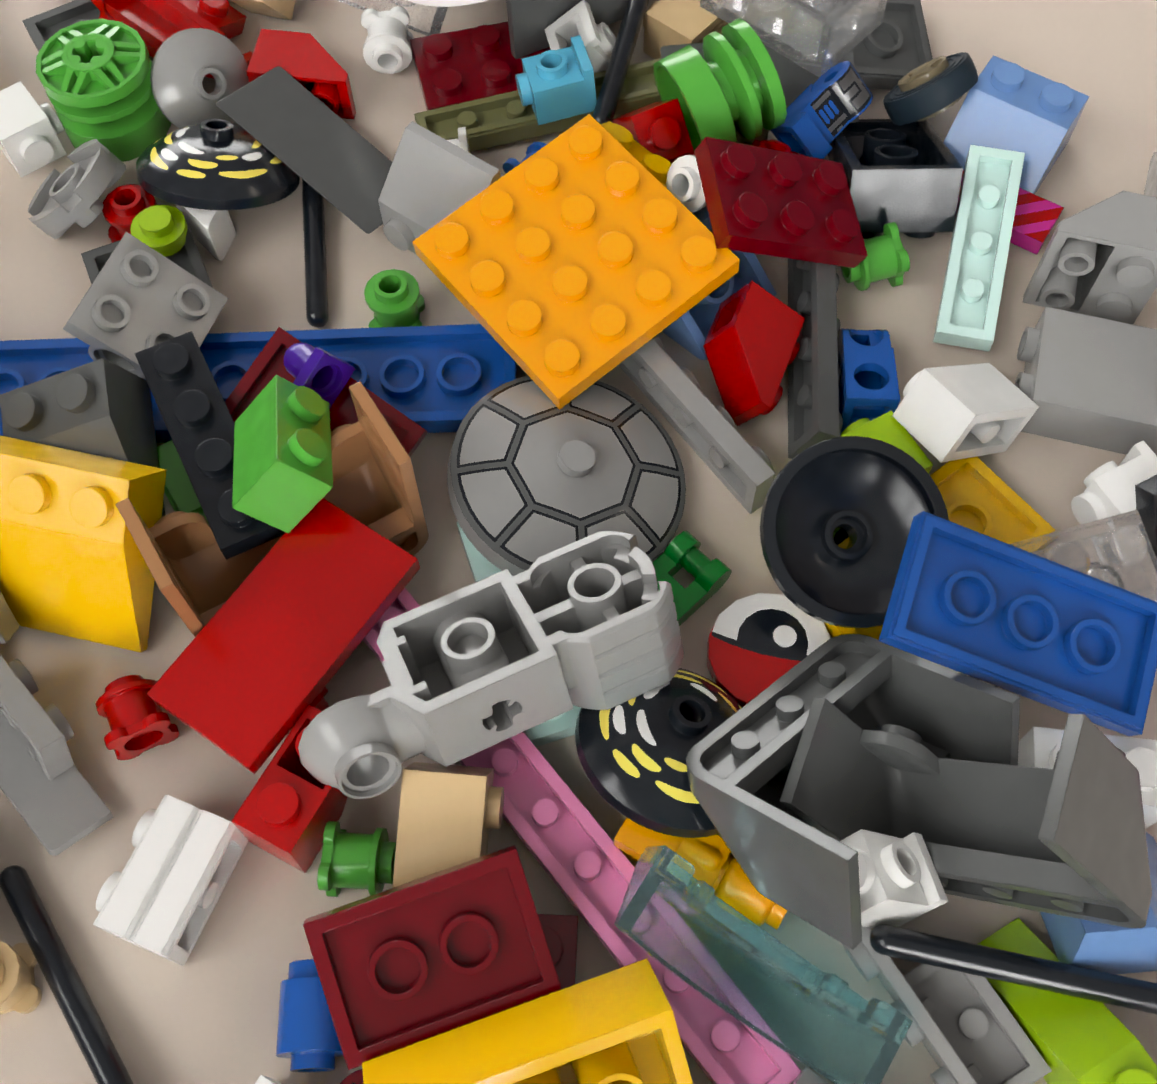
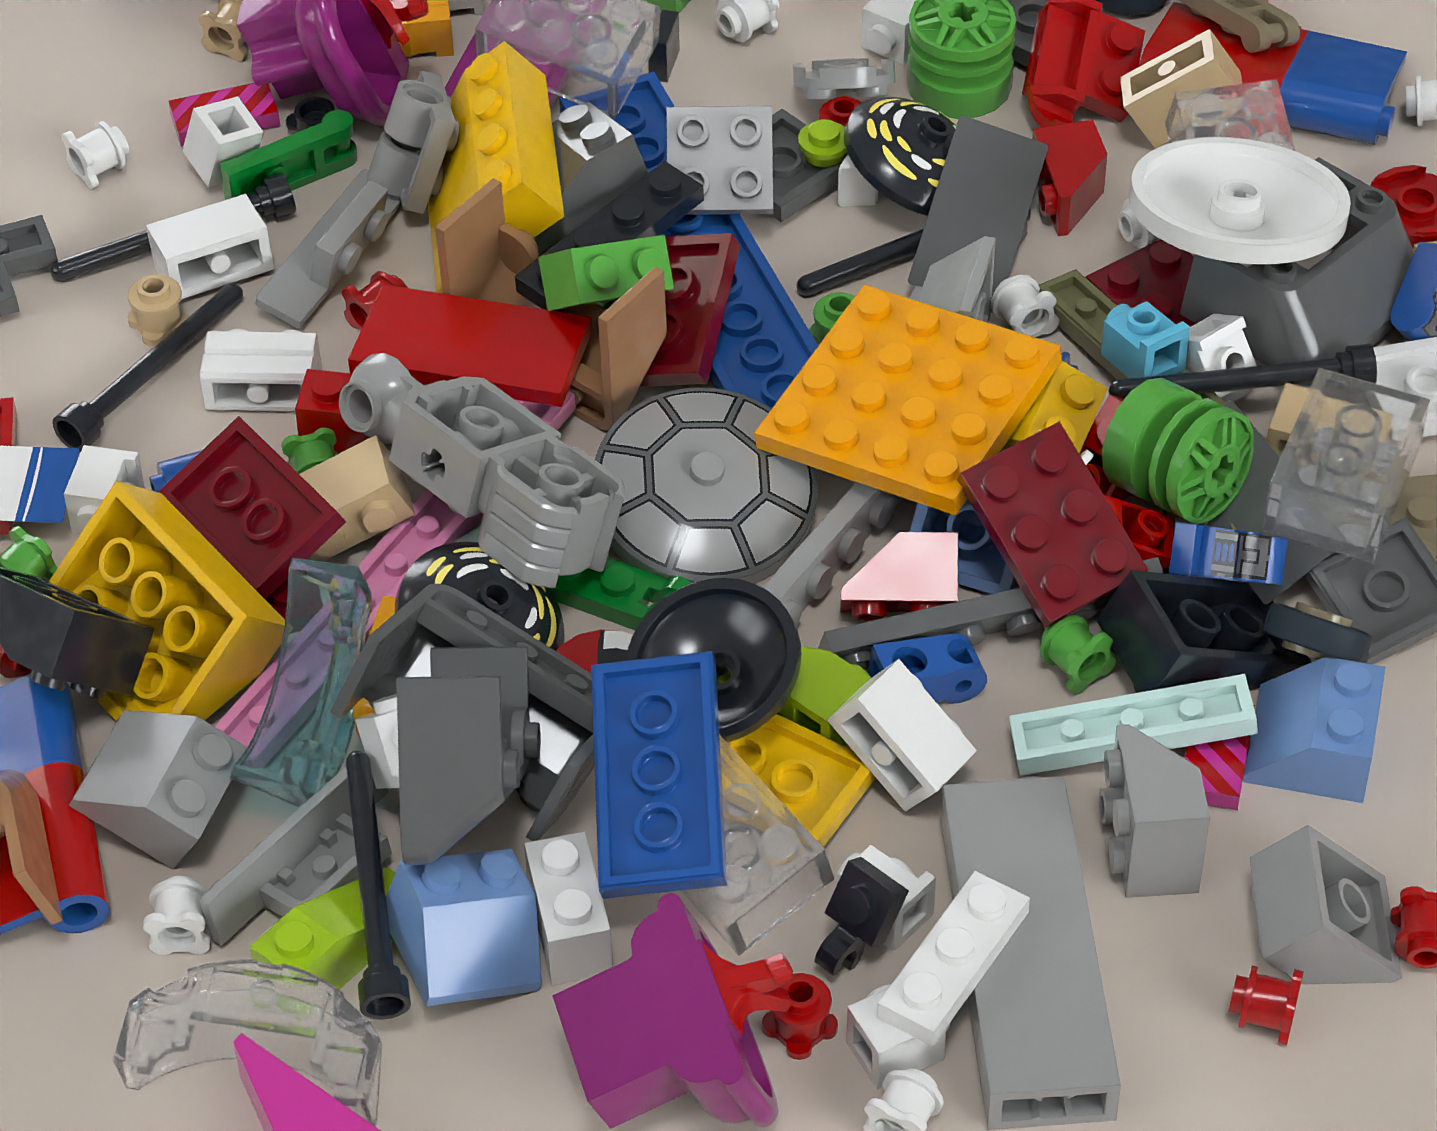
camera: 70 degrees right, 15 degrees down
(179, 74) = (1019, 84): light grey dish -> none
(317, 370) = (697, 272): dark purple piece -> none

